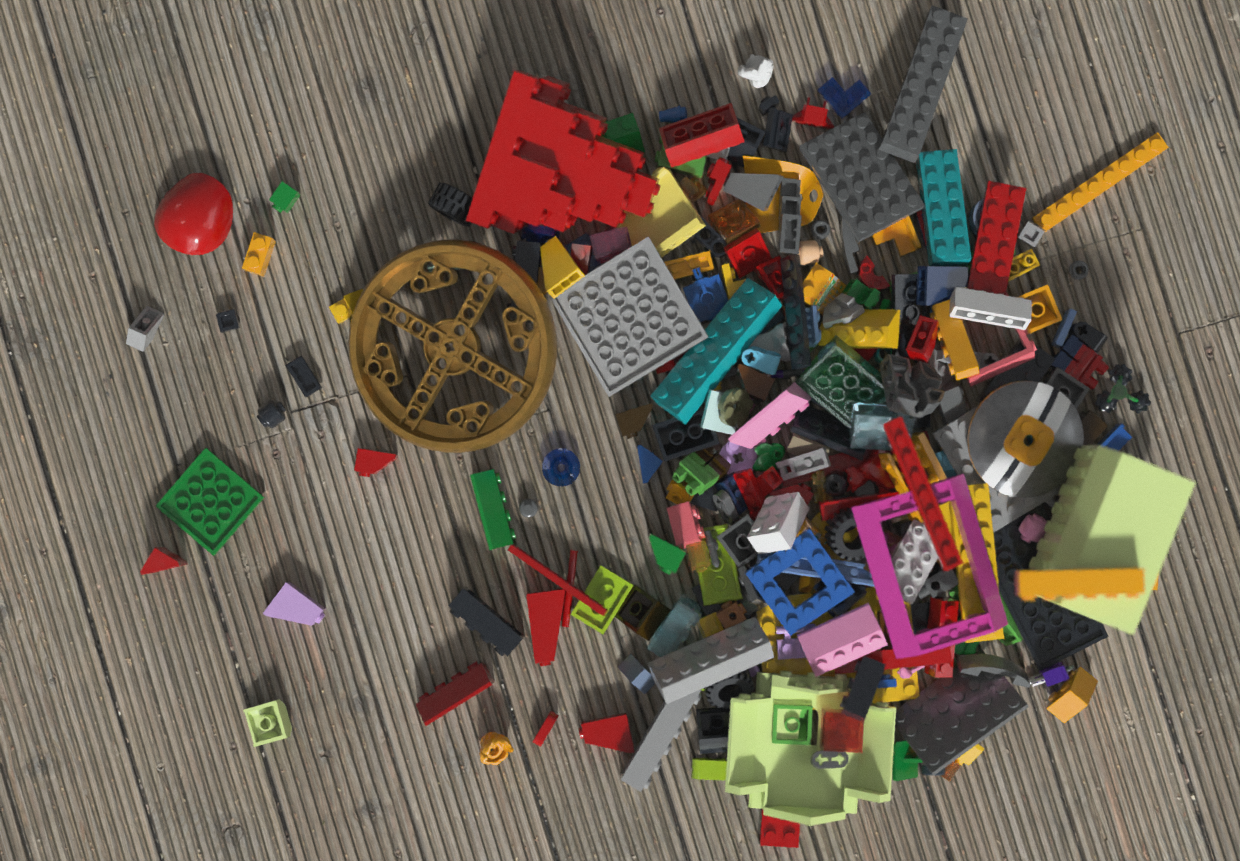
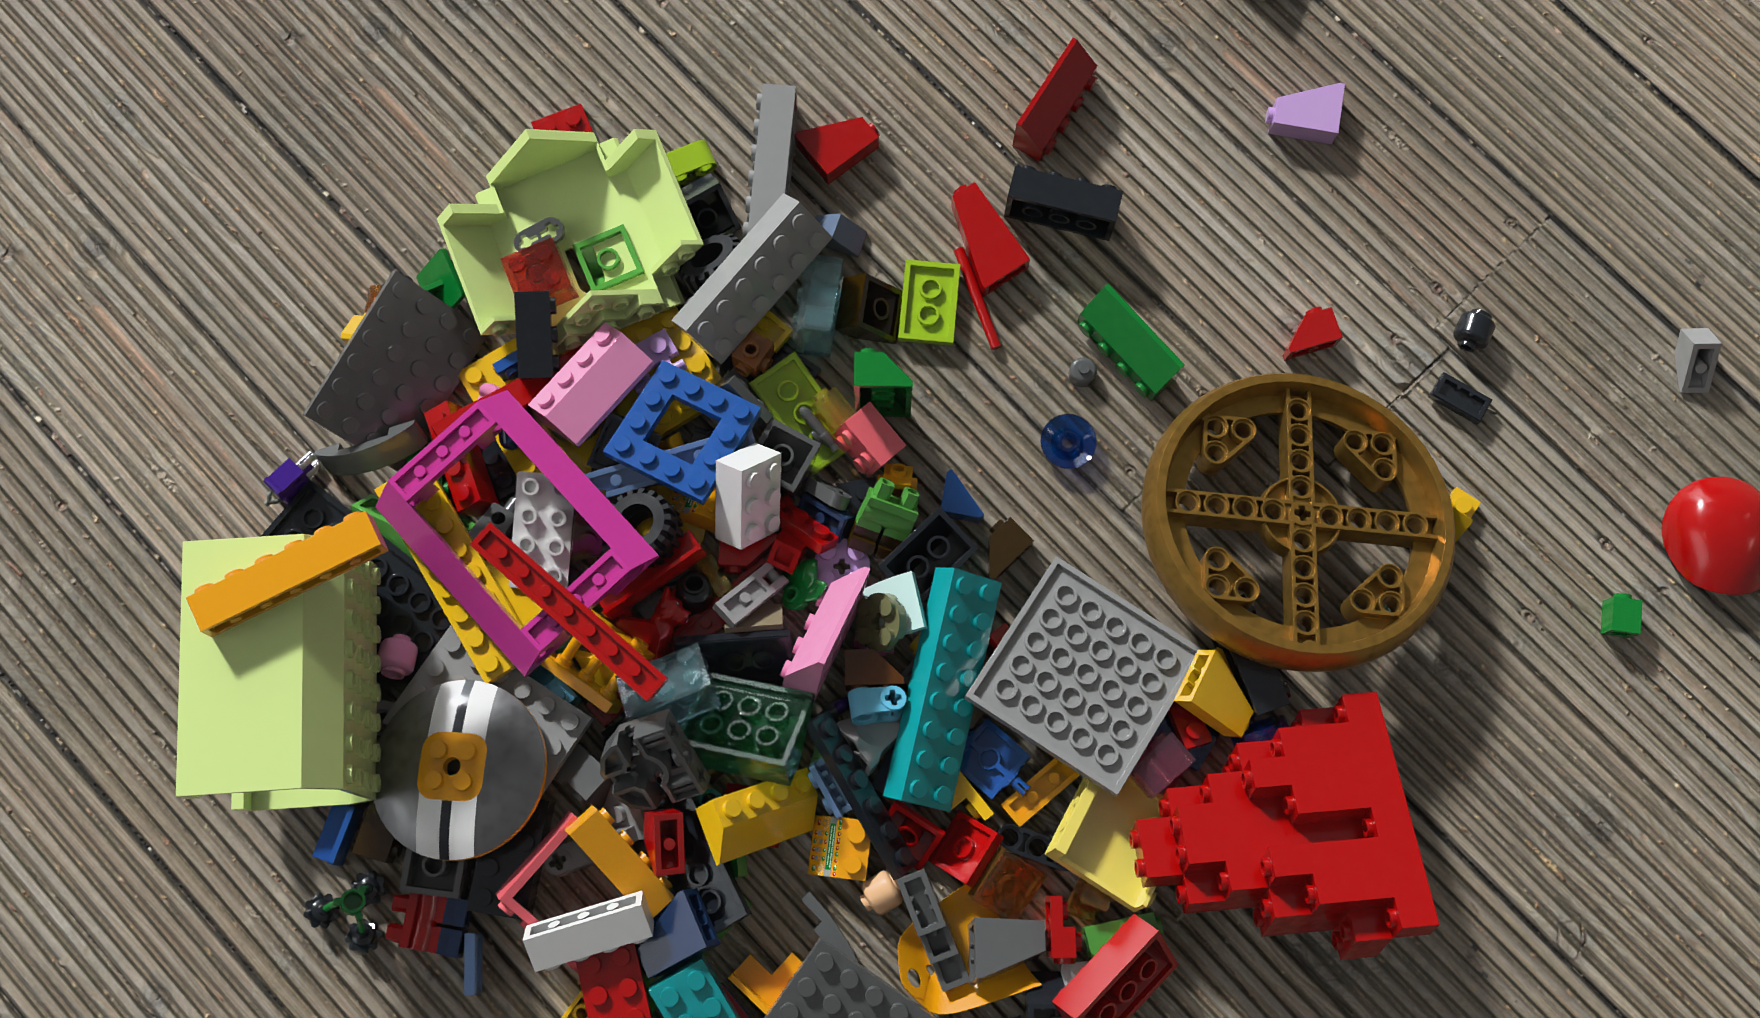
camera: 155 degrees right, 10 degrees down
(161, 560) = (1503, 88): red slope -> none
(210, 501) = (1485, 189): green plate -> none
(228, 321) = (1597, 421): black plate -> none
(258, 254) = (1610, 524): light orange brick -> none
(451, 203) = (1408, 713): black tyre -> none
(500, 744) = (972, 62): light orange hair -> none
(545, 728) = (919, 115): red beam -> none
(560, 581) = (998, 296): red tile -> none
(625, 131) = (1221, 933): green slope -> none
(673, 114) = (1166, 997): blue cone -> none
(820, 223) = (870, 936): dark grey plate -> none
(841, 309) = (798, 829): light grey plate -> none
(862, 294) = (780, 868): green brick -> none
(868, 278) = (781, 896): red cylinder -> none
(1043, 309) = (515, 976): light orange slope -> none
(1073, 695) = (248, 465): light orange brick -> none
(1090, 336) = (430, 968): black piece -> none

